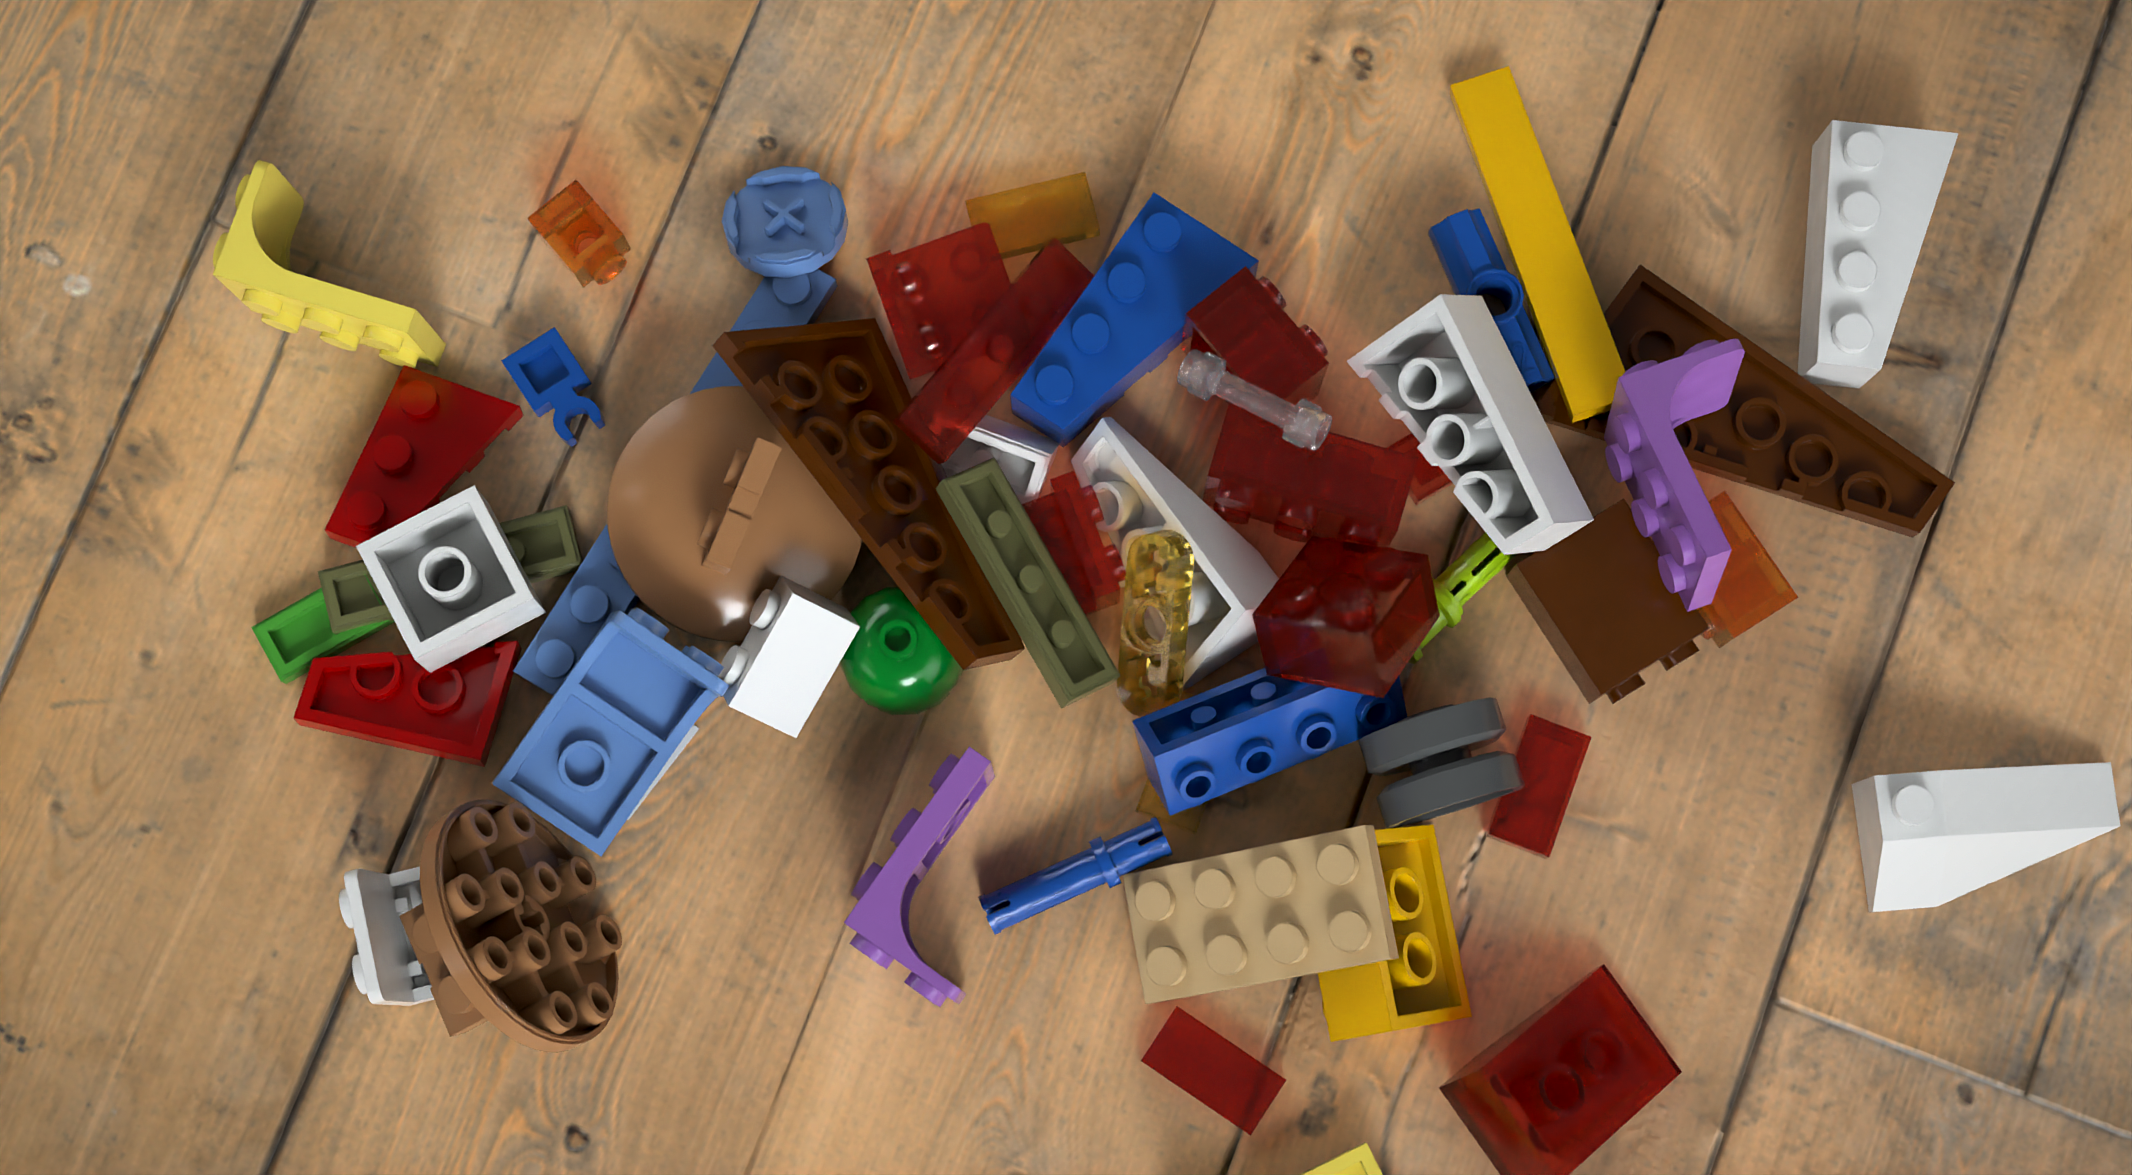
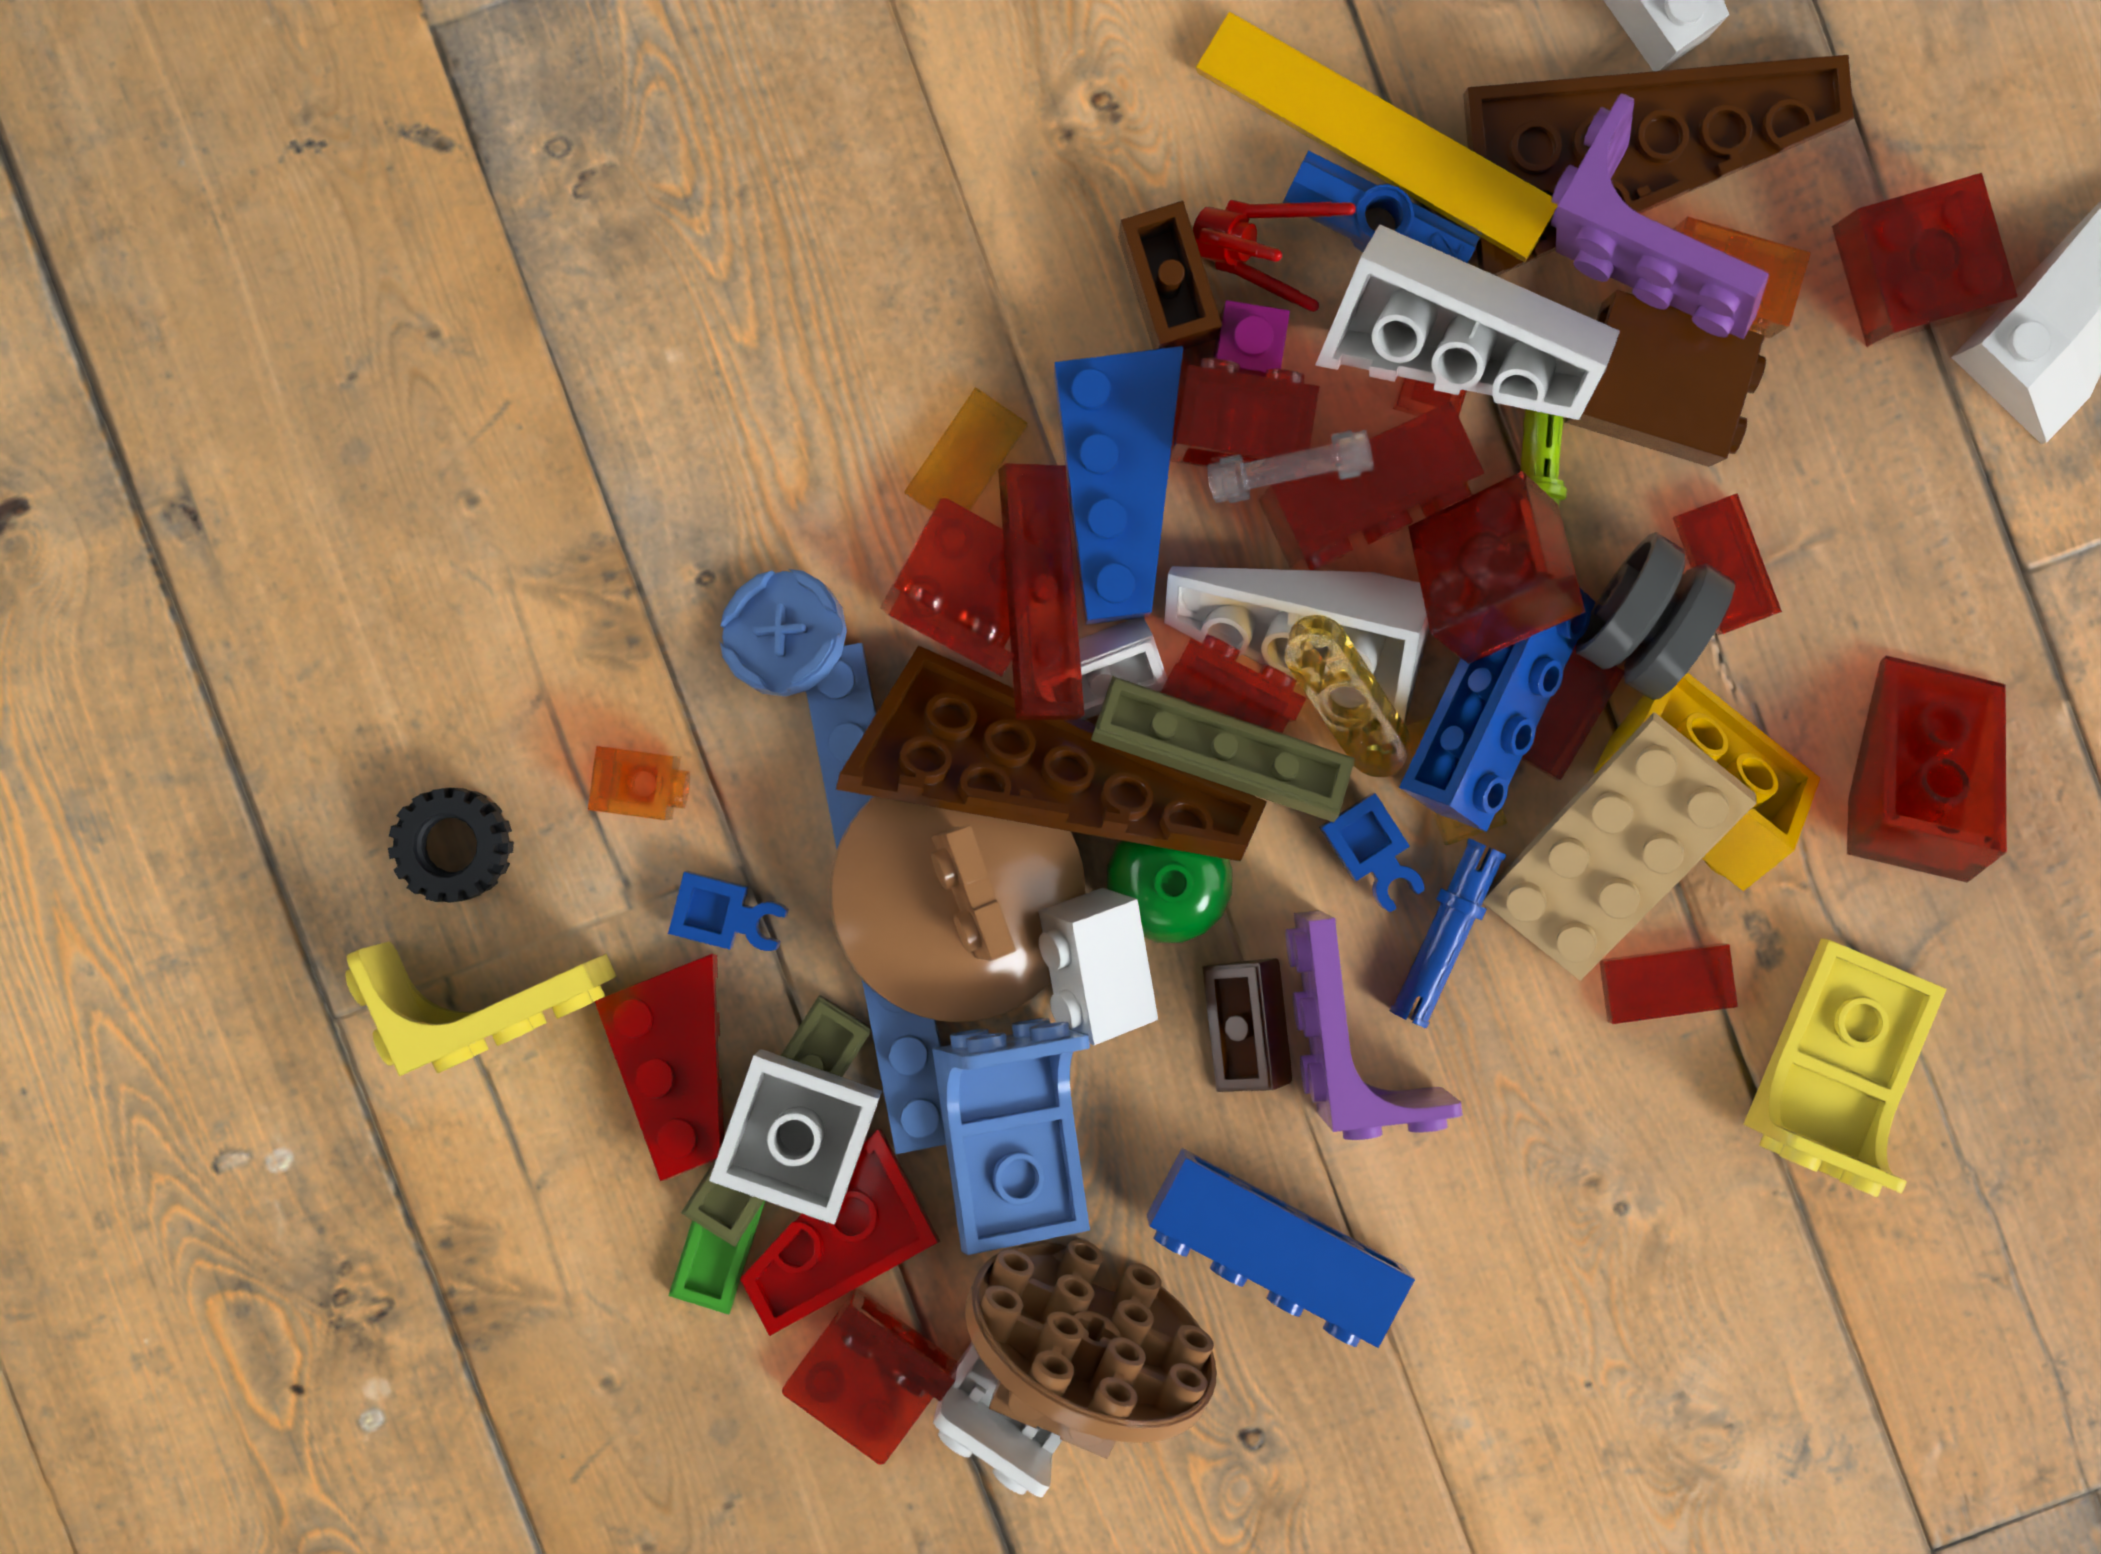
camera: 45 degrees left, 10 degrees up
(336, 818) = (870, 1377): none -> clear red bracket
(386, 141) = (411, 843): none -> black tyre
(727, 997) = (1278, 1249): none -> blue brick
(862, 812) = (1247, 1025): none -> reddish brown slope
(1076, 753) = (1368, 843): none -> blue plate
(1294, 208) = (1169, 277): none -> reddish brown brick
(1314, 790) = (1571, 714): none -> clear red tile
(1320, 300) = (1252, 336): none -> magenta brick
(1368, 225) = (1232, 240): none -> red plant
(1886, 683) = (1924, 259): none -> clear red brick

